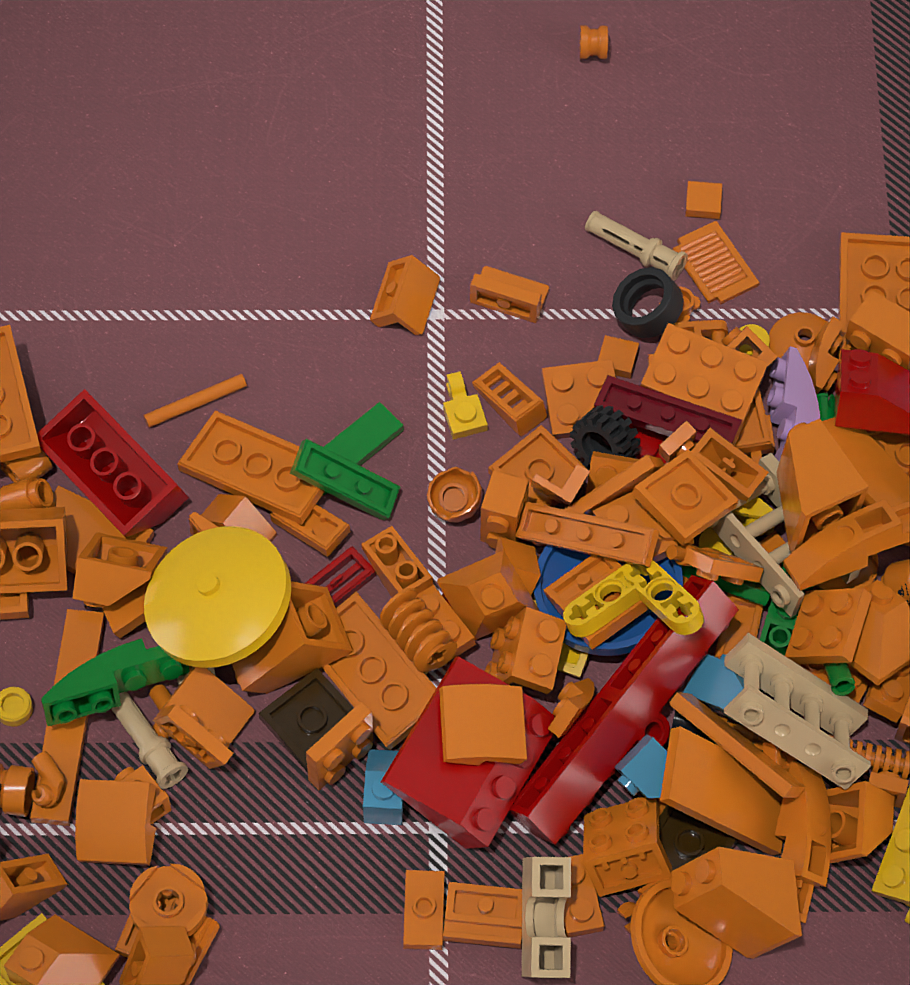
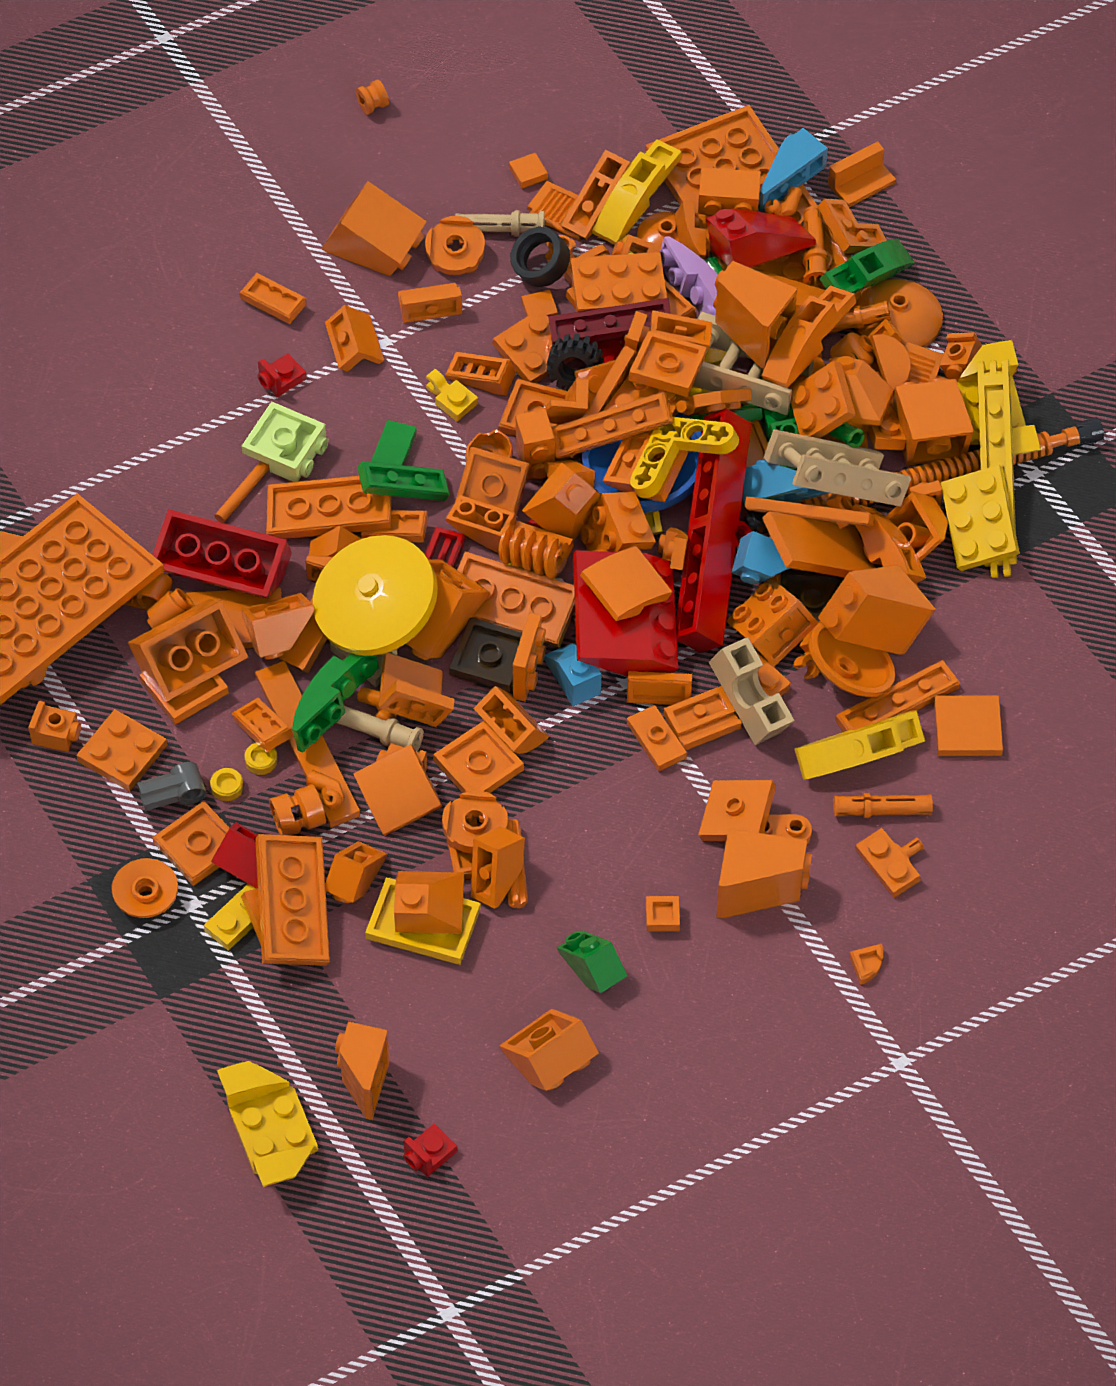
camera: 30 degrees left, 5 degrees down
(33, 670) = (262, 724): none -> orange plate
(222, 834) = (478, 760): none -> orange plate
(260, 374) = (286, 442): none -> yellowish green plate
(283, 807) = (510, 721): none -> orange brick
(307, 297) = (280, 374): none -> red bracket
(353, 210) = (273, 298): none -> orange plate
(437, 529) = (494, 479): none -> orange plate
(459, 855) = (658, 687): none -> orange tile
(499, 191) = (376, 232): none -> orange slope
(566, 227) = (460, 261): none -> orange plate
(756, 265) = (594, 194): none -> orange slope
(792, 277) = (634, 189): none -> yellow slope

